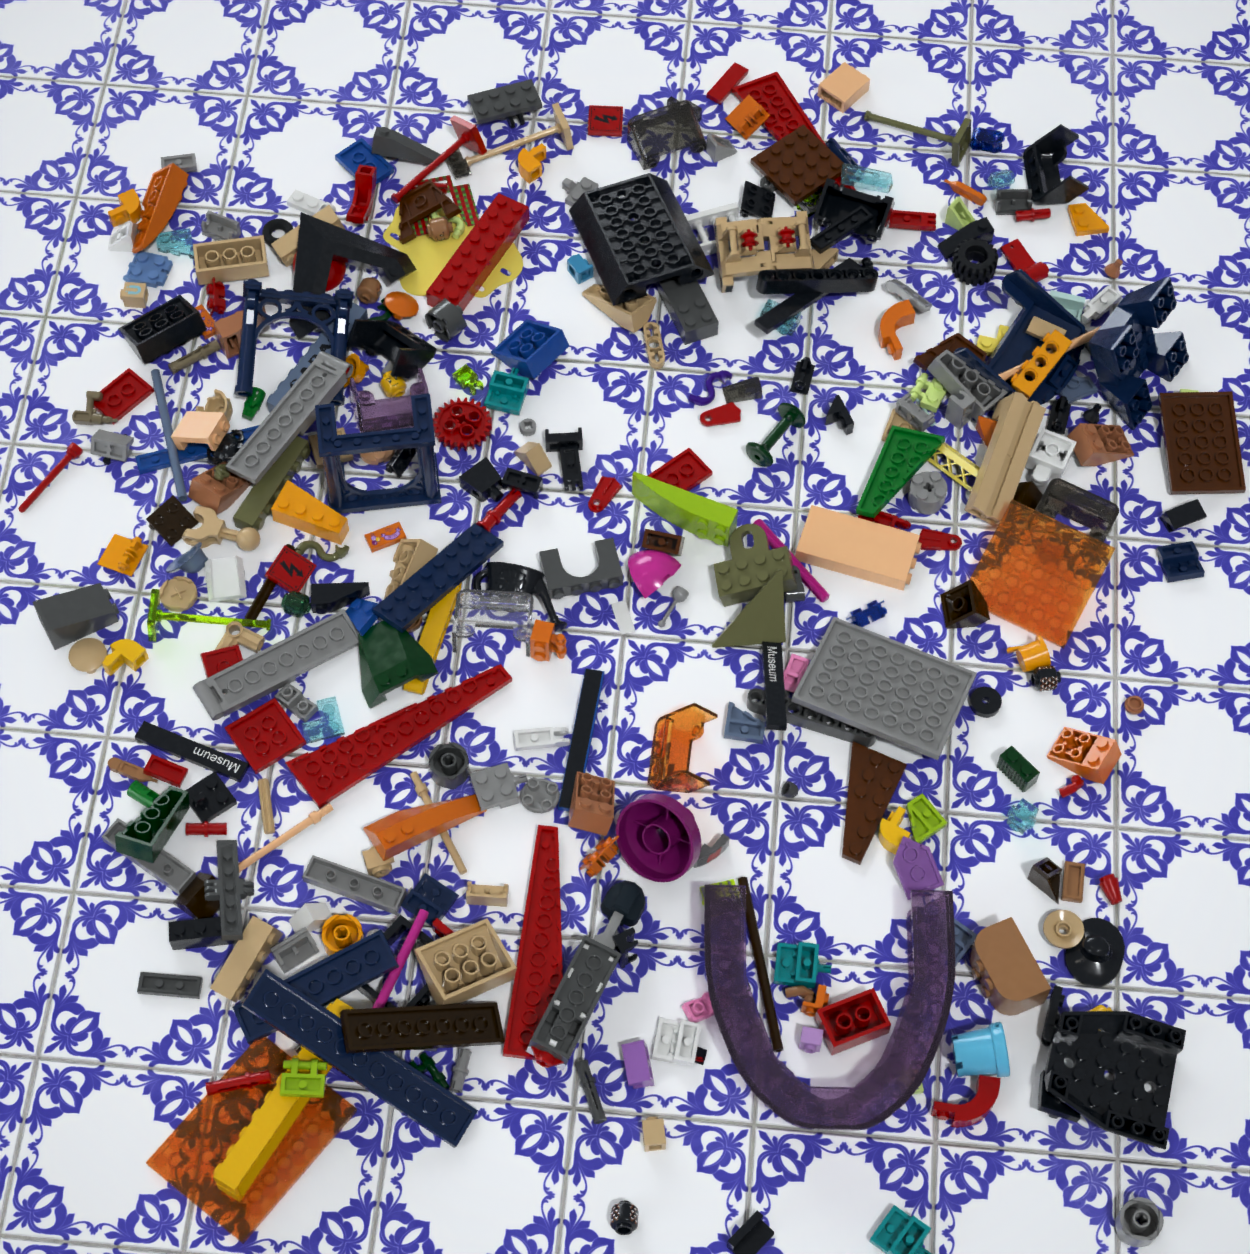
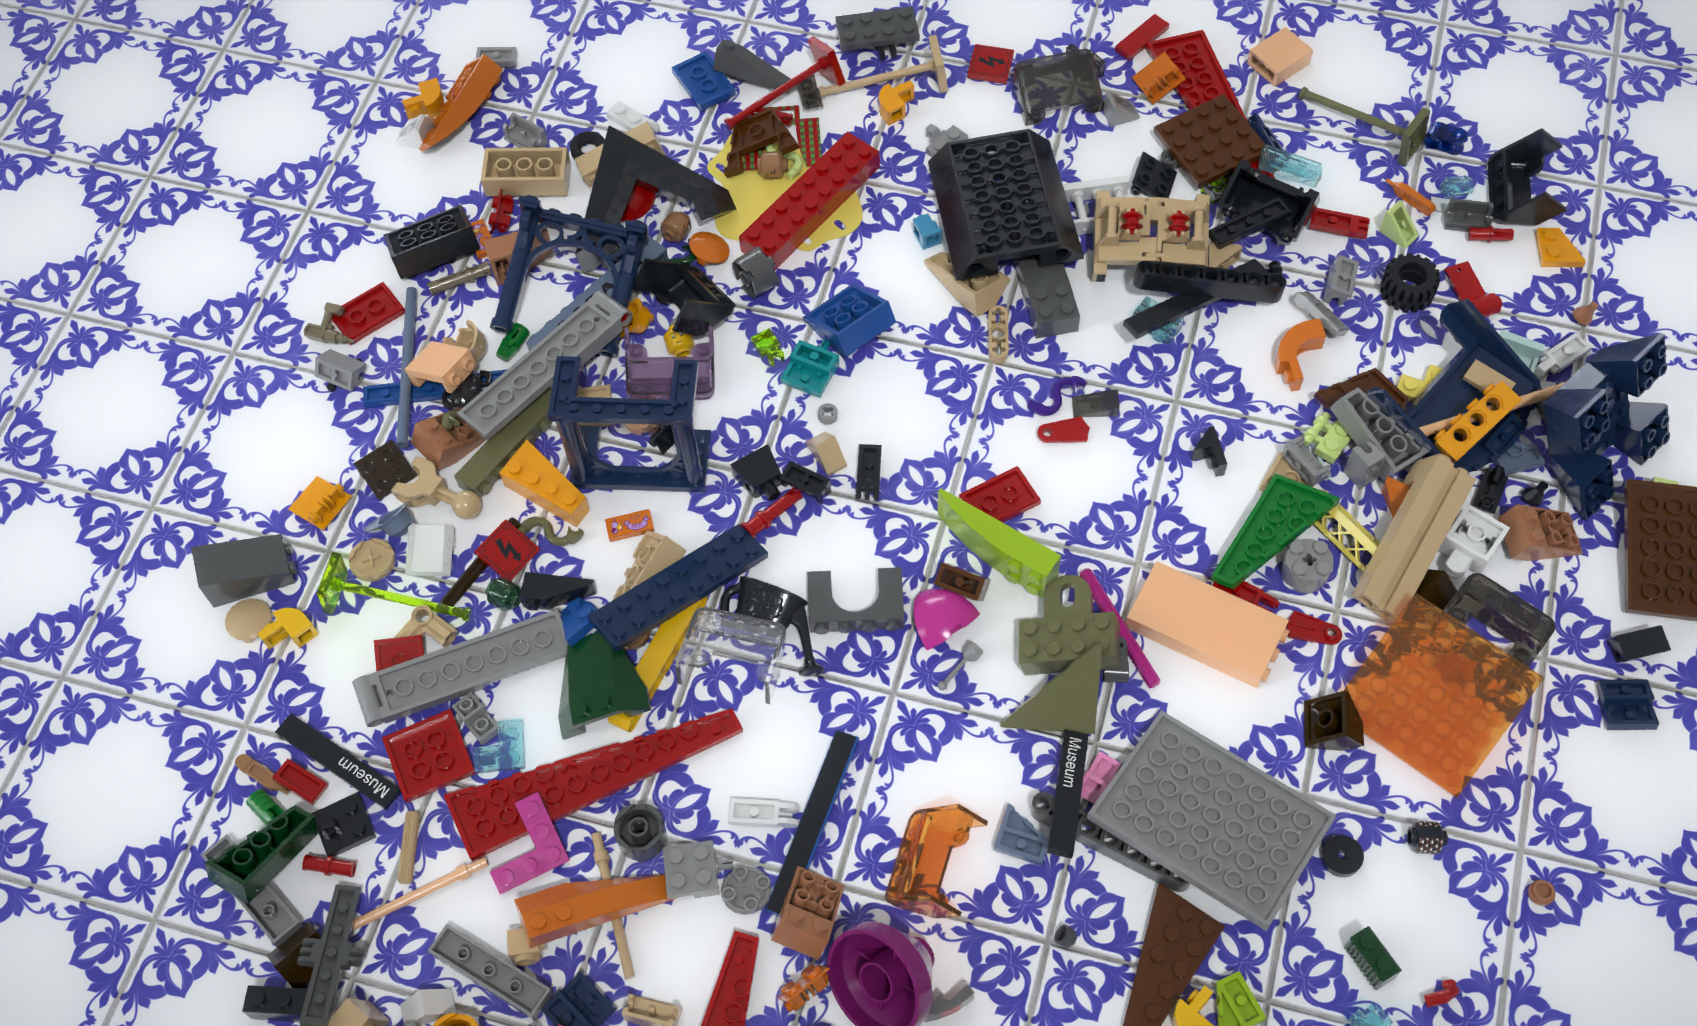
camera: 15 degrees right, 0 degrees up
(73, 451) = (294, 372): red piece -> none
(134, 295) = (410, 198): tan brick -> none
(148, 269) = (434, 171): medium blue plate -> none
(176, 242) = (470, 143): clear light blue wing -> none
(364, 194) = (693, 116): red arch -> none
(378, 790) = (546, 856): none -> dark pink plate
(462, 424) = (749, 400): red gear -> none
(545, 641) = (790, 688): orange brick -> none
(556, 440) = (856, 435): black hinge -> none
(604, 493) = (903, 508): red piece -> none
(623, 617) = (896, 670): white sticker -> none
(760, 452) = (1149, 444): dark green hose -> none
(802, 376) = (1173, 396): black hinge -> none
(874, 610) = (1214, 709): clear blue hinge -> none
(920, 266) = (1341, 280): none -> light grey hinge
(977, 229) = (1419, 243): black slope -> none
(1032, 654) = (1413, 802): light orange hat -> none
(1085, 754) = (1467, 951): orange slope -> none

